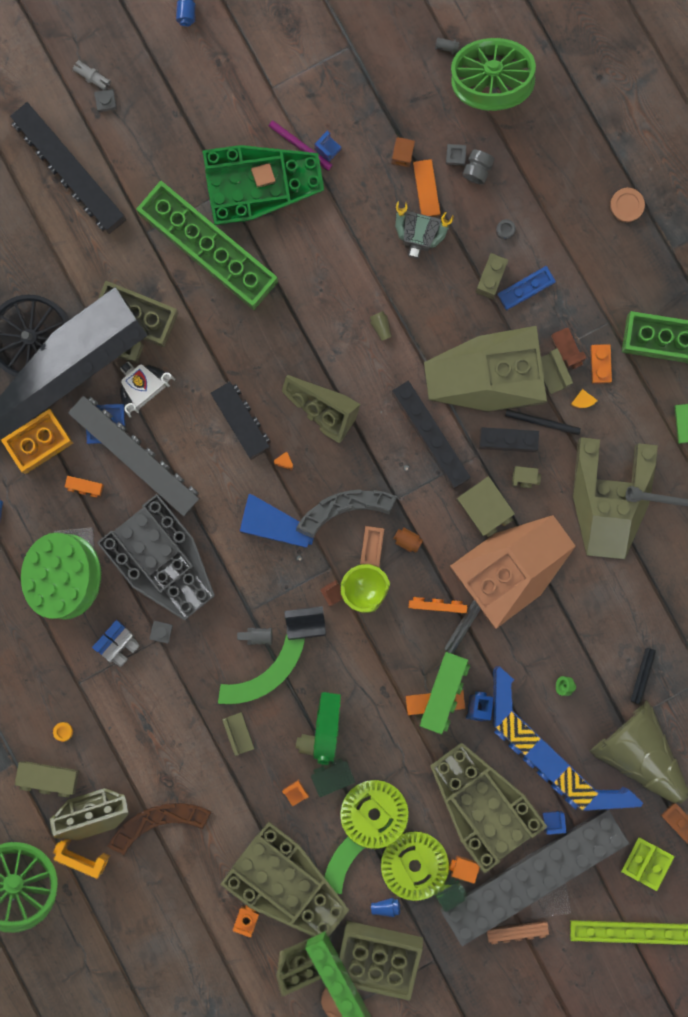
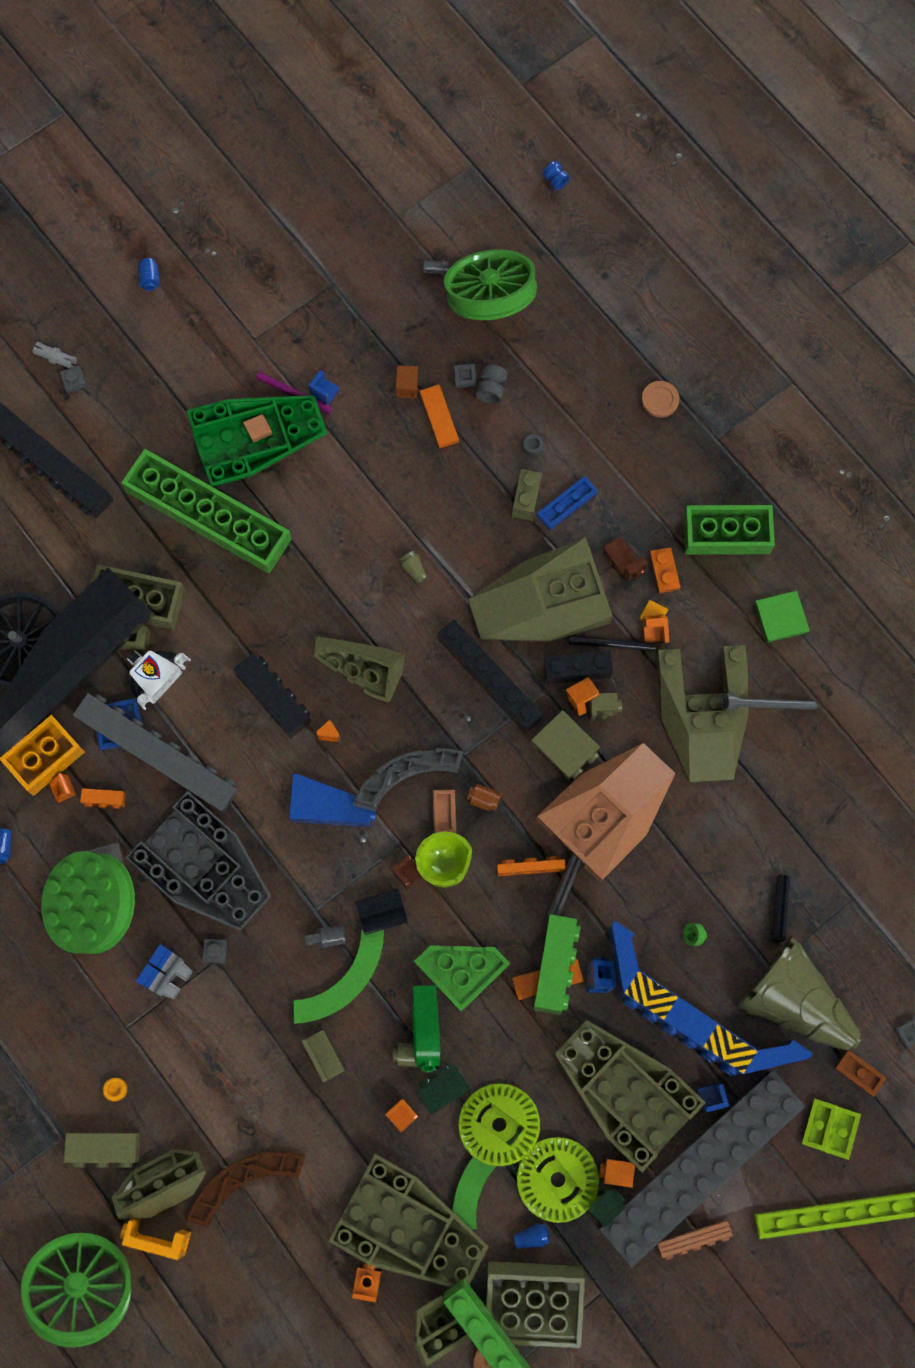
camera: 10 degrees left, 10 degrees down
(50, 471) = (62, 787): none -> orange slope
(364, 683) = (462, 970): none -> bright green plate
(419, 230) = (439, 459): torso -> none
(507, 464) = (580, 694): none -> orange panel
(555, 372) = (617, 586): olive panel -> none
(583, 415) = (656, 628): none -> orange panel

